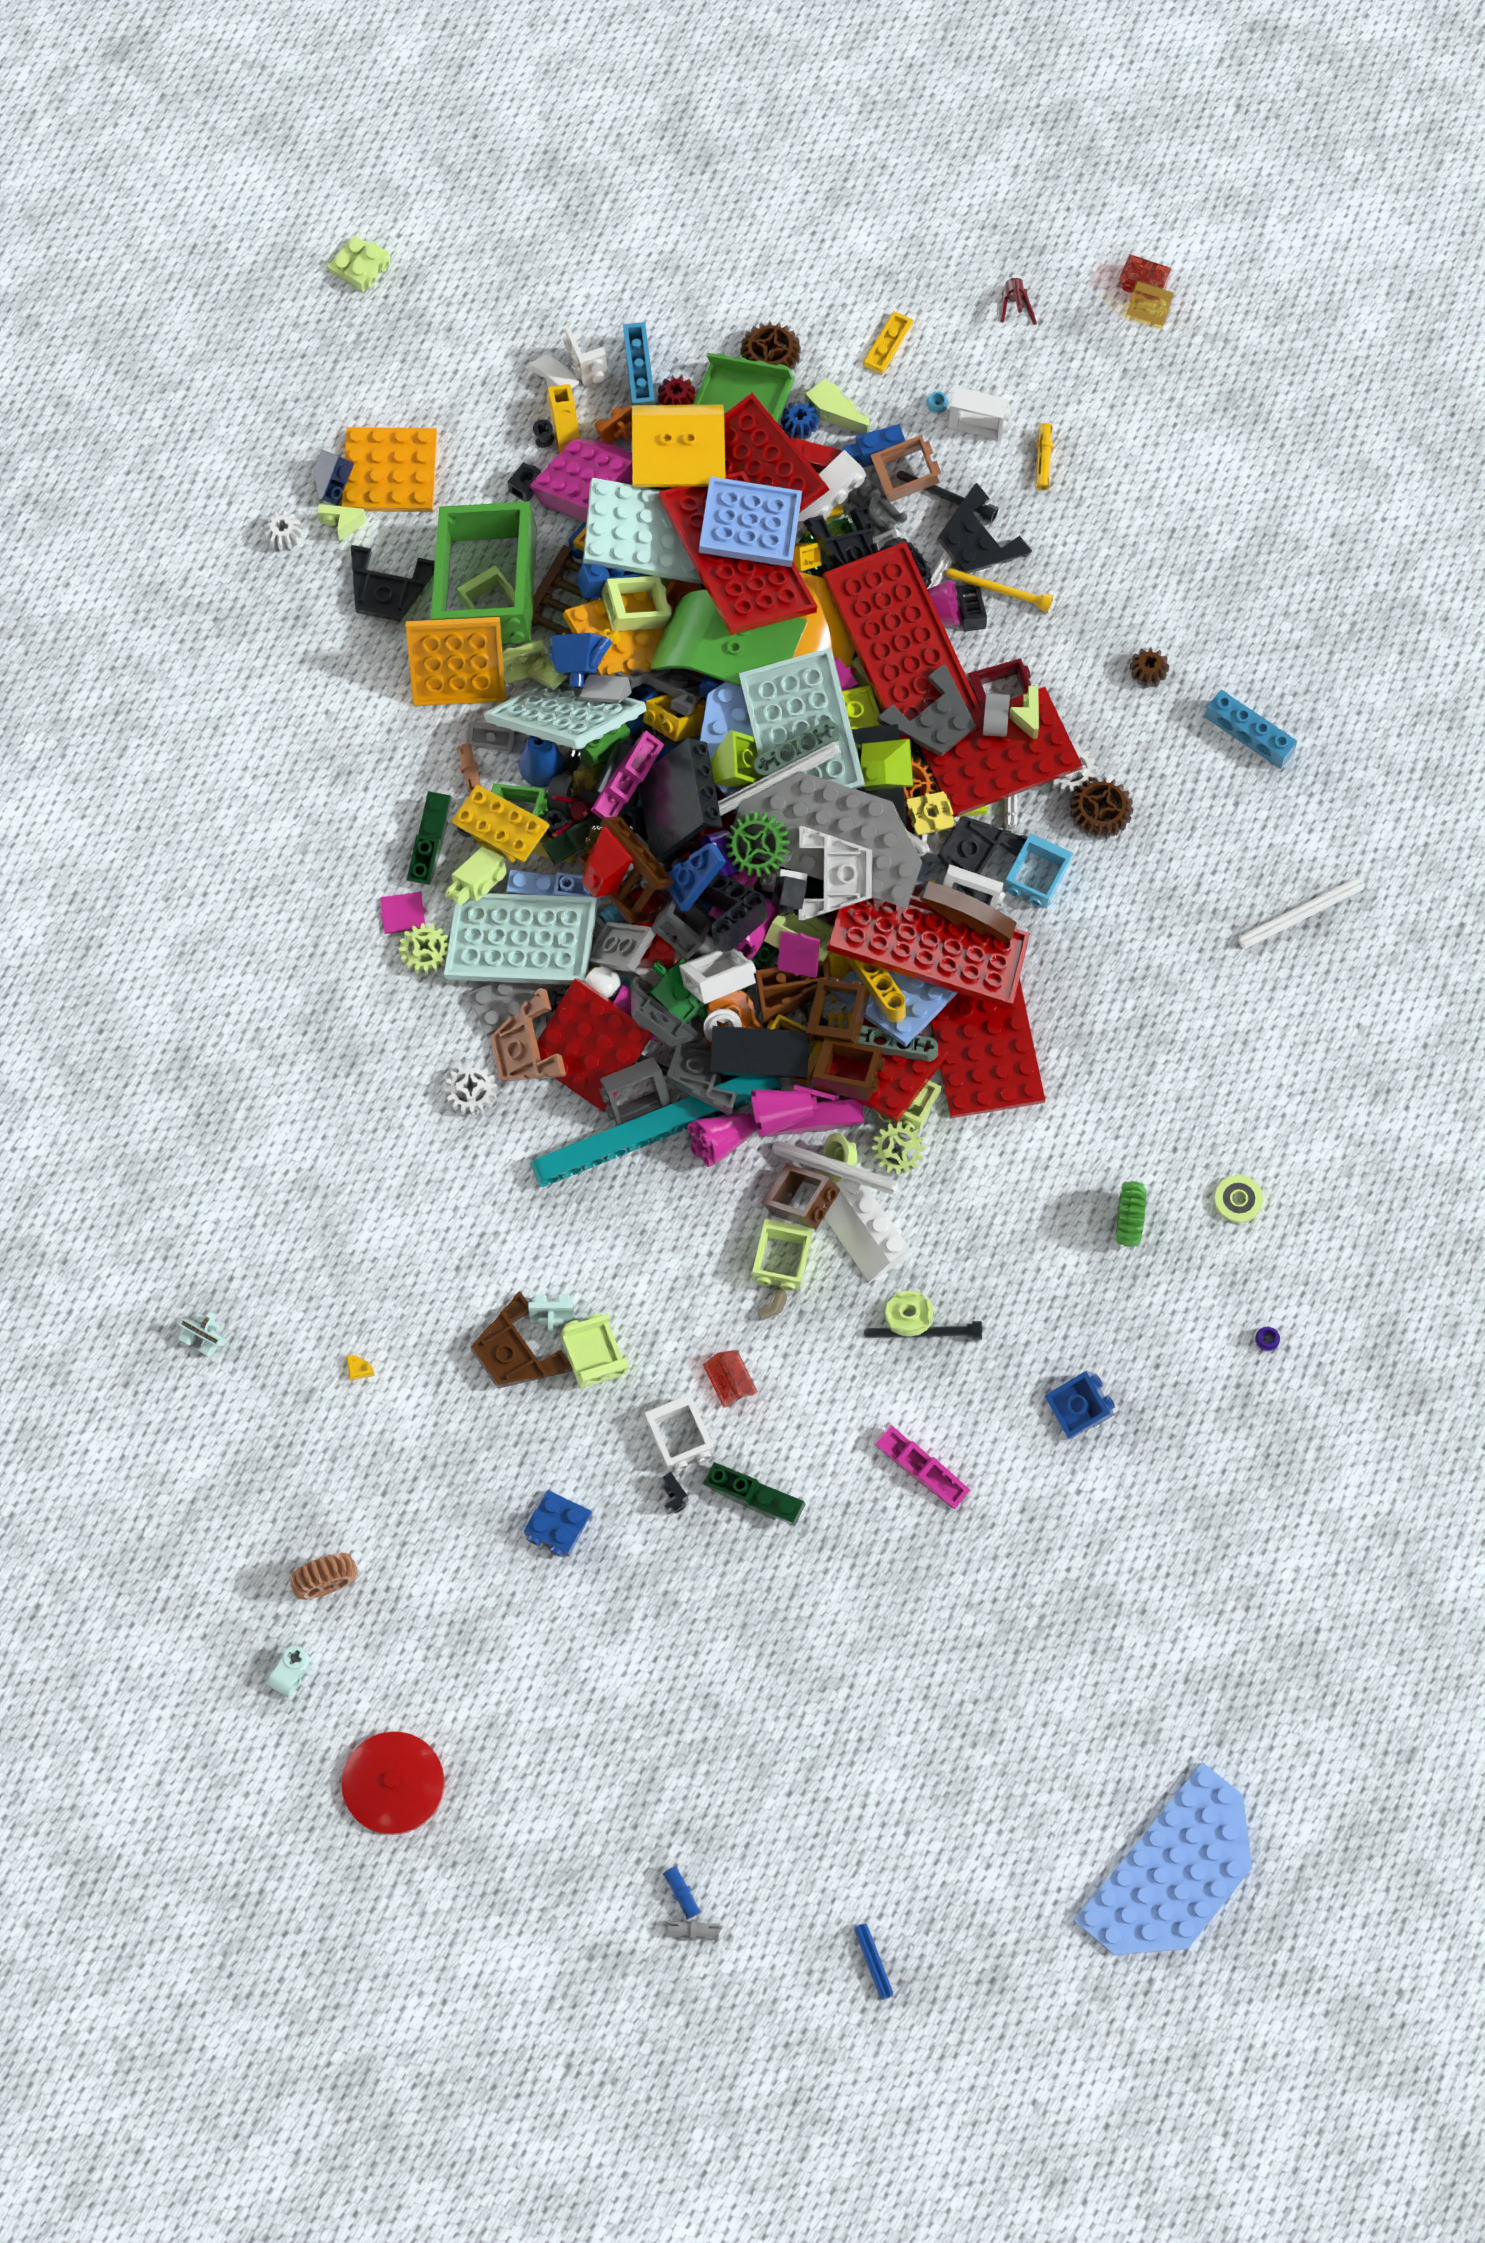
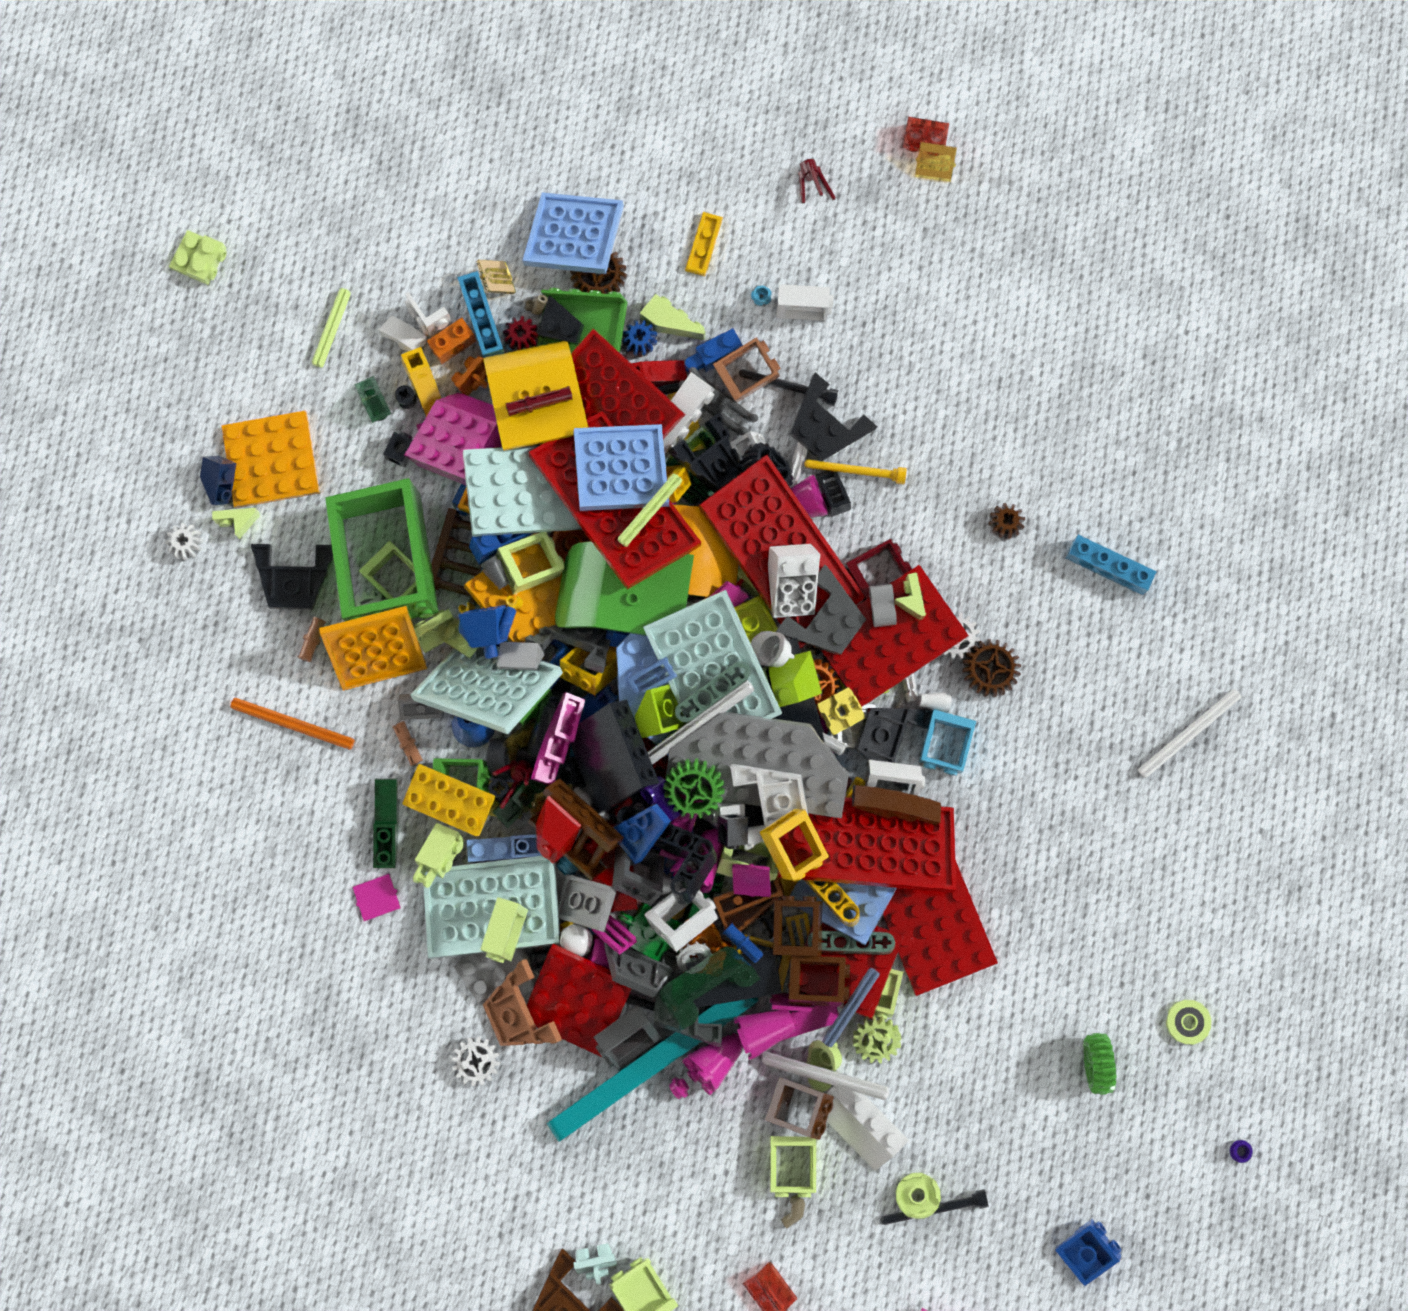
camera: 15 degrees left, 10 degrees up
(354, 727) = (292, 723): none -> orange axle
(391, 650) = (311, 639): none -> nougat pin
(424, 958) = (399, 941): yellowish green gear -> none
(481, 354) = (331, 327): none -> yellowish green axle
(509, 430) = (373, 399): none -> clear green slope
(530, 952) = (504, 930): none -> yellowish green window
(598, 603) = (495, 572): none -> dark grey cone
(603, 387) = (451, 341): none -> orange brick
(646, 978) = (622, 930): none -> dark pink tile
(663, 333) = (496, 276): none -> piece
(678, 1157) = (679, 1087): none -> dark pink plate
(684, 445) = (532, 403): none -> dark red pin
(699, 372) = (536, 306): none -> dark tan arm
(718, 388) = (559, 324): none -> black wing
(753, 304) = (573, 233): none -> light blue plate
(755, 719) = (668, 668): none -> medium blue tile
(758, 1031) = (682, 991): none -> clear green windscreen
(770, 562) = (649, 510): none -> yellowish green axle
(776, 1016) = (743, 943): none -> blue axle
(832, 921) = (780, 827): none -> yellow window
(870, 728) = (771, 649): none -> white piece
(893, 1083) = (850, 1007): none -> sand blue axle
(906, 670) = (793, 579): none -> white slope
(1036, 827) = (936, 701): none -> white cone
(1044, 447) = (868, 324): yellow pin -> none

